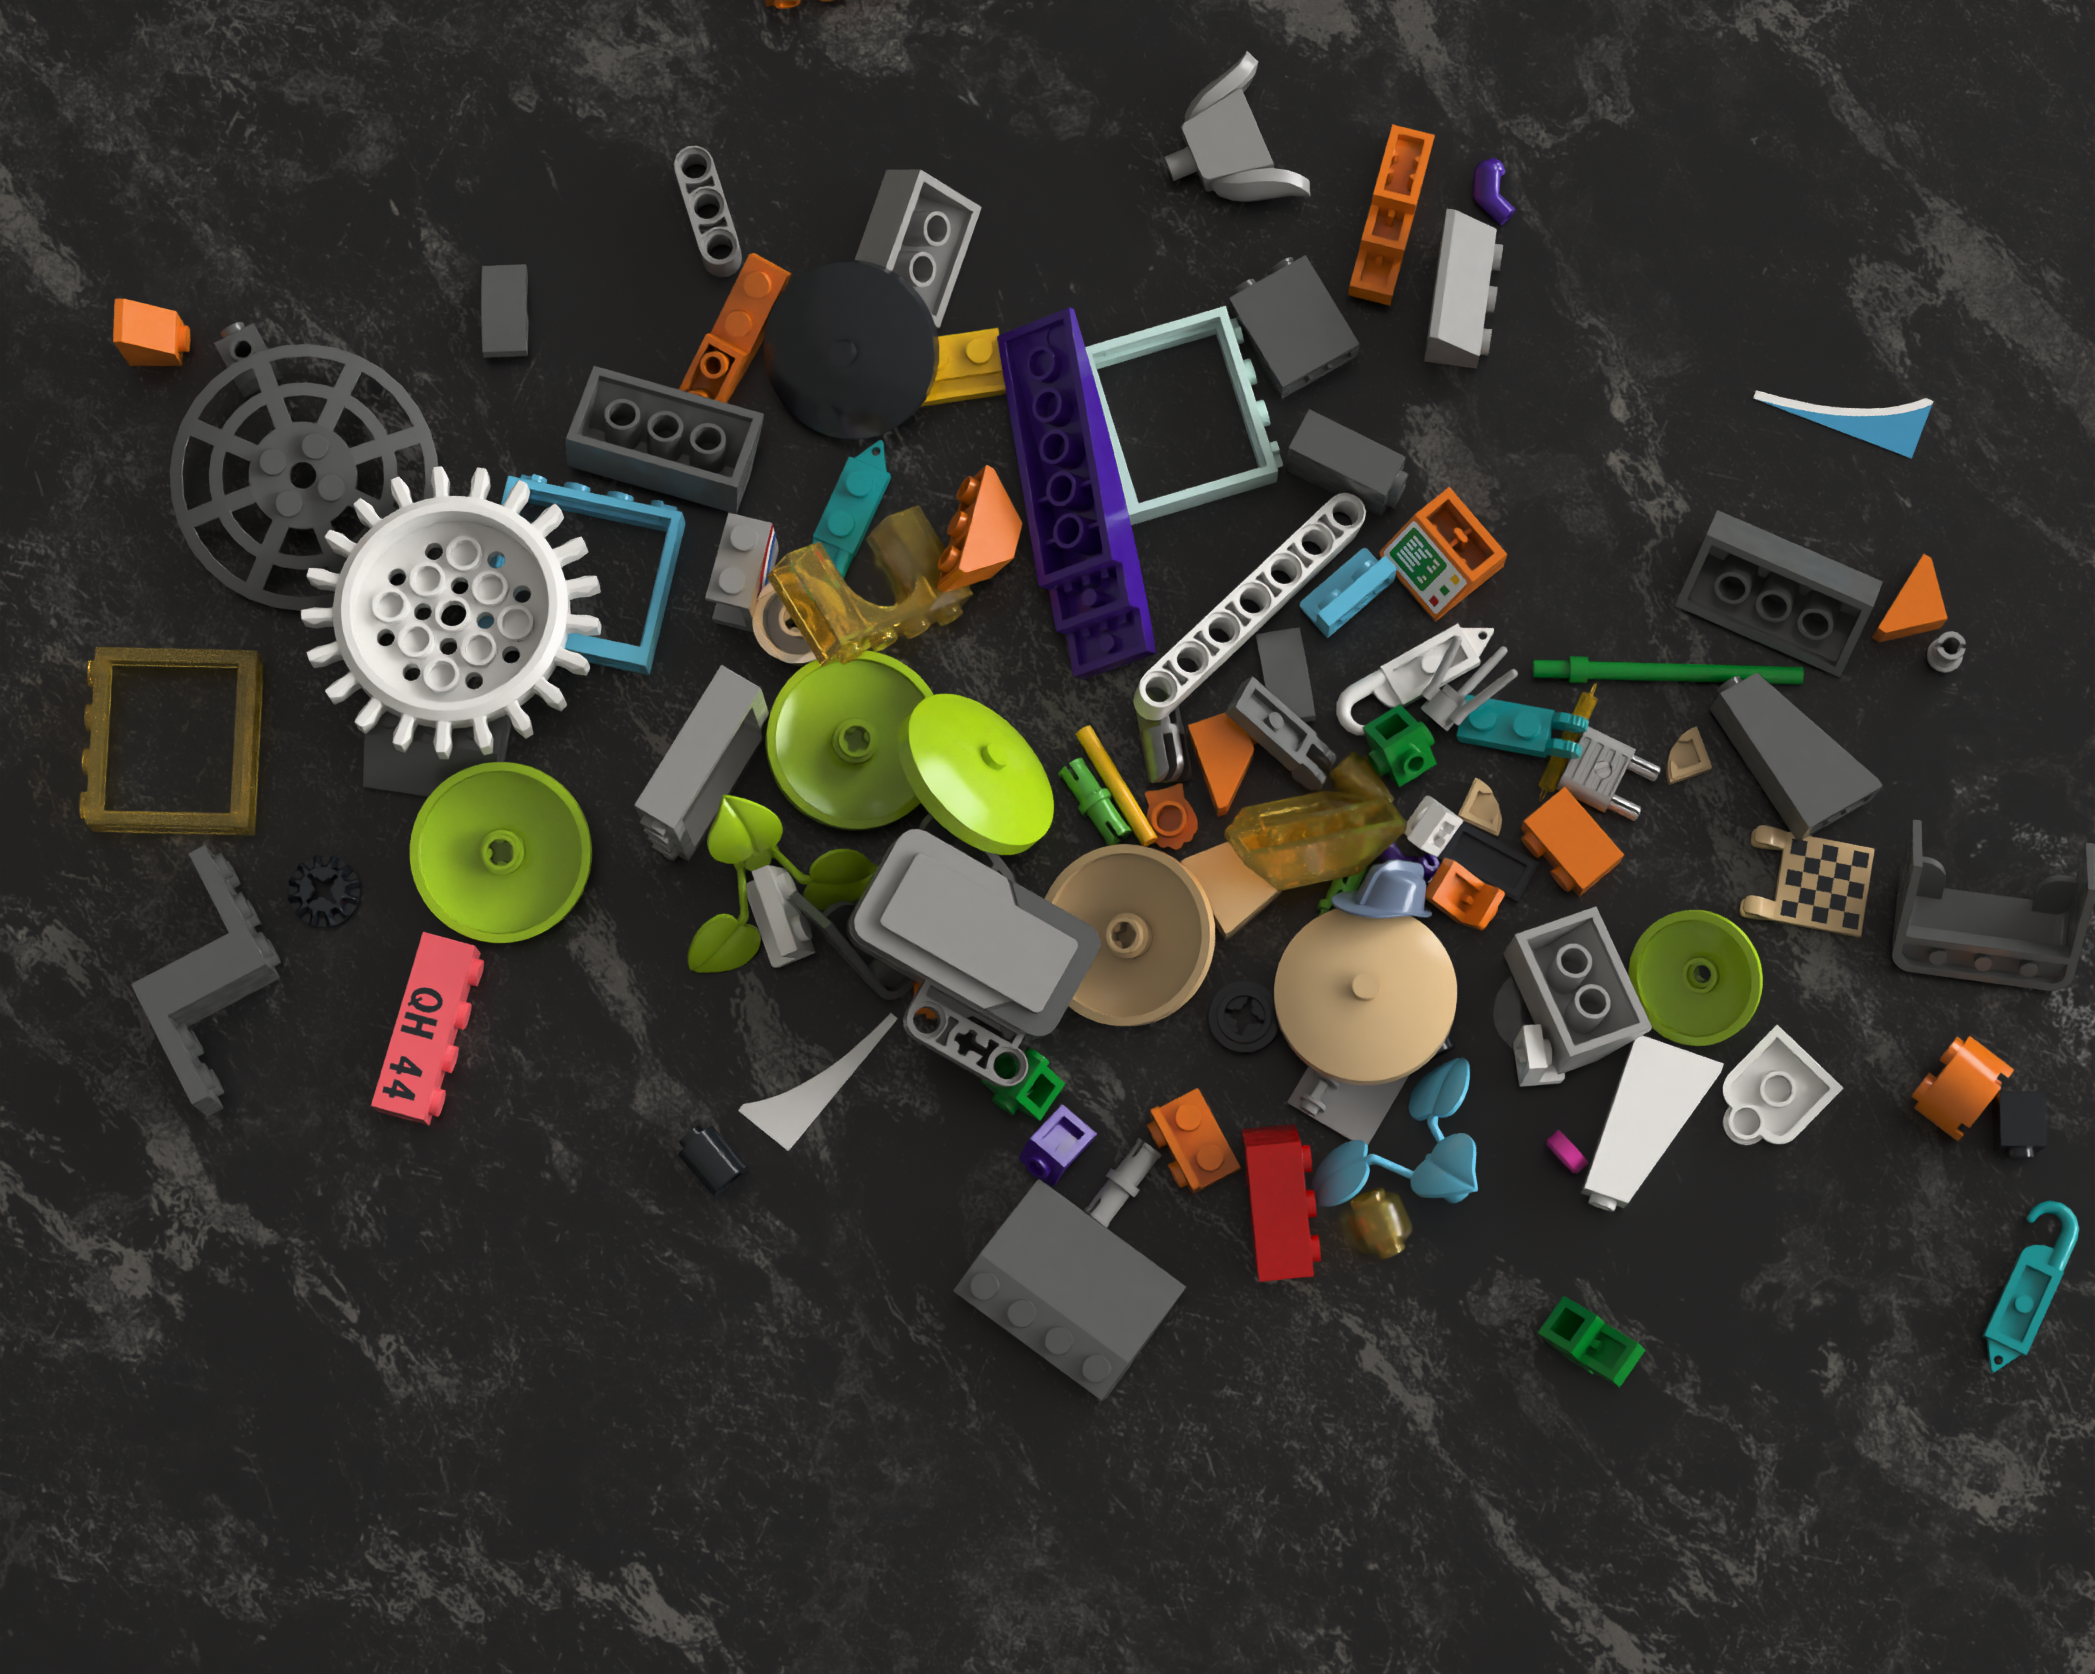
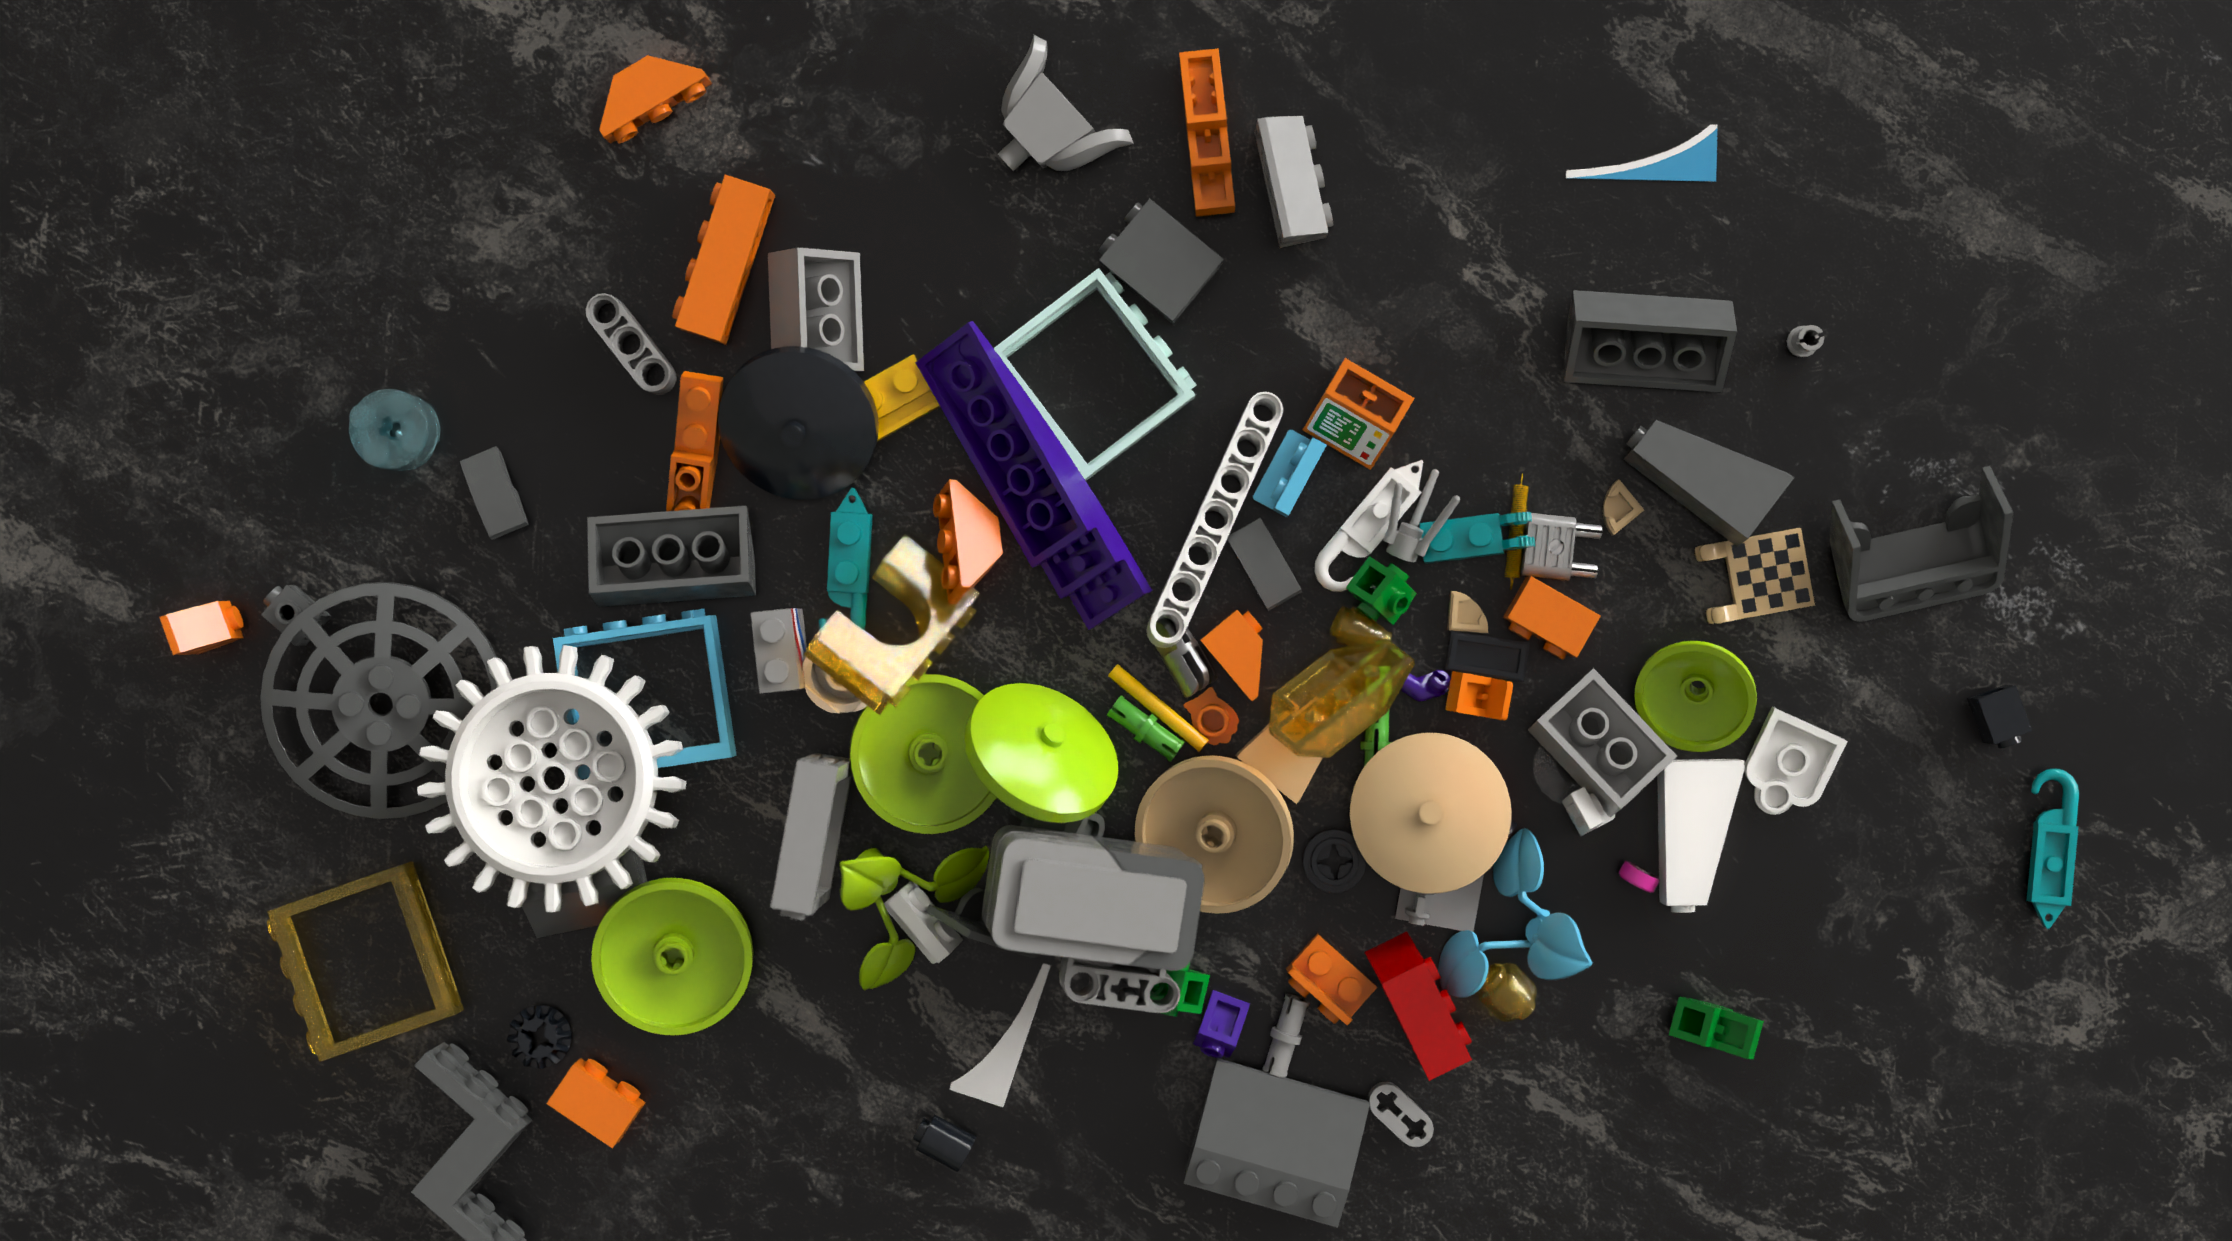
camera: 25 degrees left, 10 degrees up
(357, 978) = (597, 1101): none -> orange brick
(422, 184) = (374, 419): none -> clear light blue brick
(427, 1029) = (669, 1122): coral brick -> none
(838, 160) = (724, 259): none -> orange brick
(1225, 1310) = (1406, 1106): none -> light grey beam
(1281, 733) = (1278, 617): dark grey hinge -> none
(1346, 463) = (1252, 367): dark grey brick -> none
(1387, 892) = (1417, 724): sand blue piece -> none
(1432, 826) = (1431, 647): white bracket -> none
(1486, 190) = (1279, 79): dark purple arm -> none
(1579, 670) = (1506, 466): green bar -> none
(1916, 607) = (1764, 308): orange slope -> none
(1961, 1087) = (1945, 707): orange brick -> none

